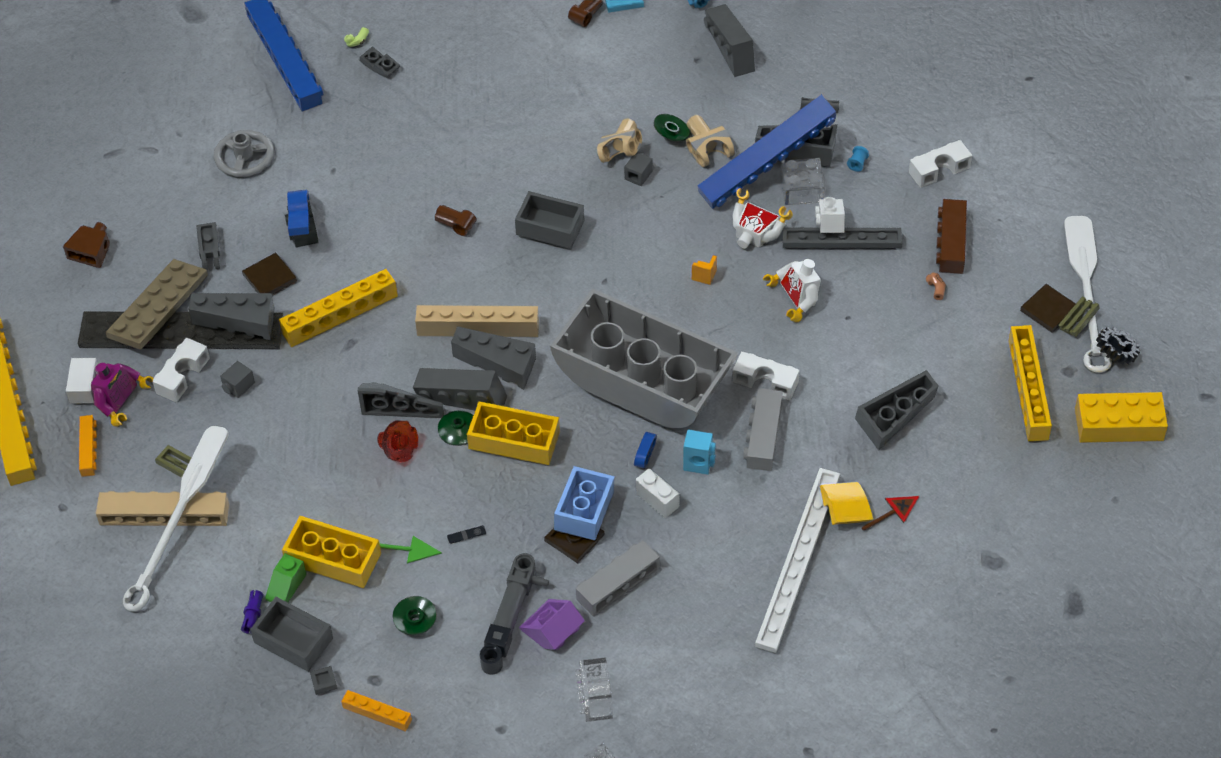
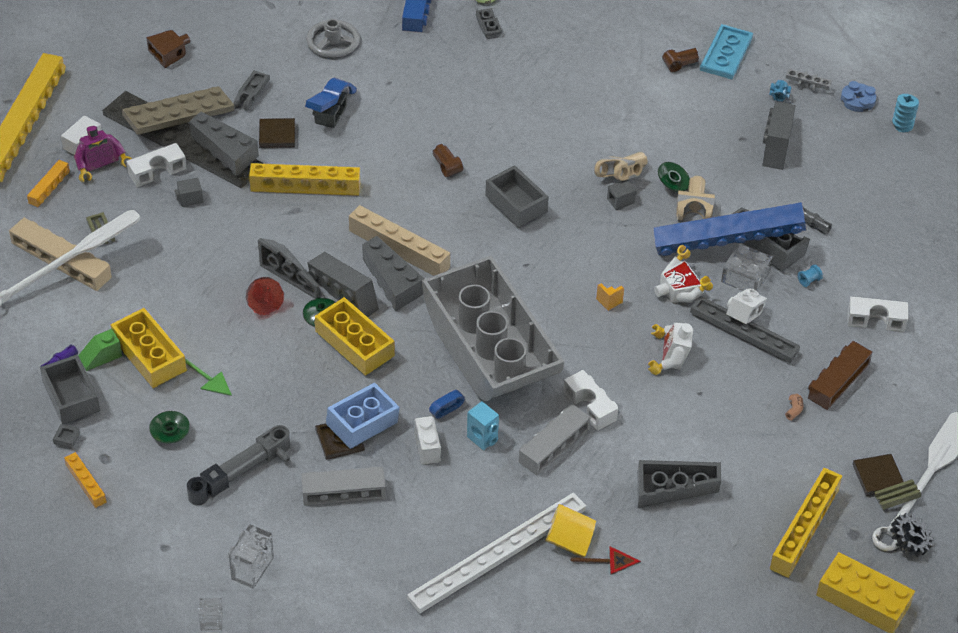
camera: 30 degrees right, 5 degrees down
(466, 534) = (261, 392): black sticker -> none
(553, 623) = (265, 492): medium lavender slope -> none

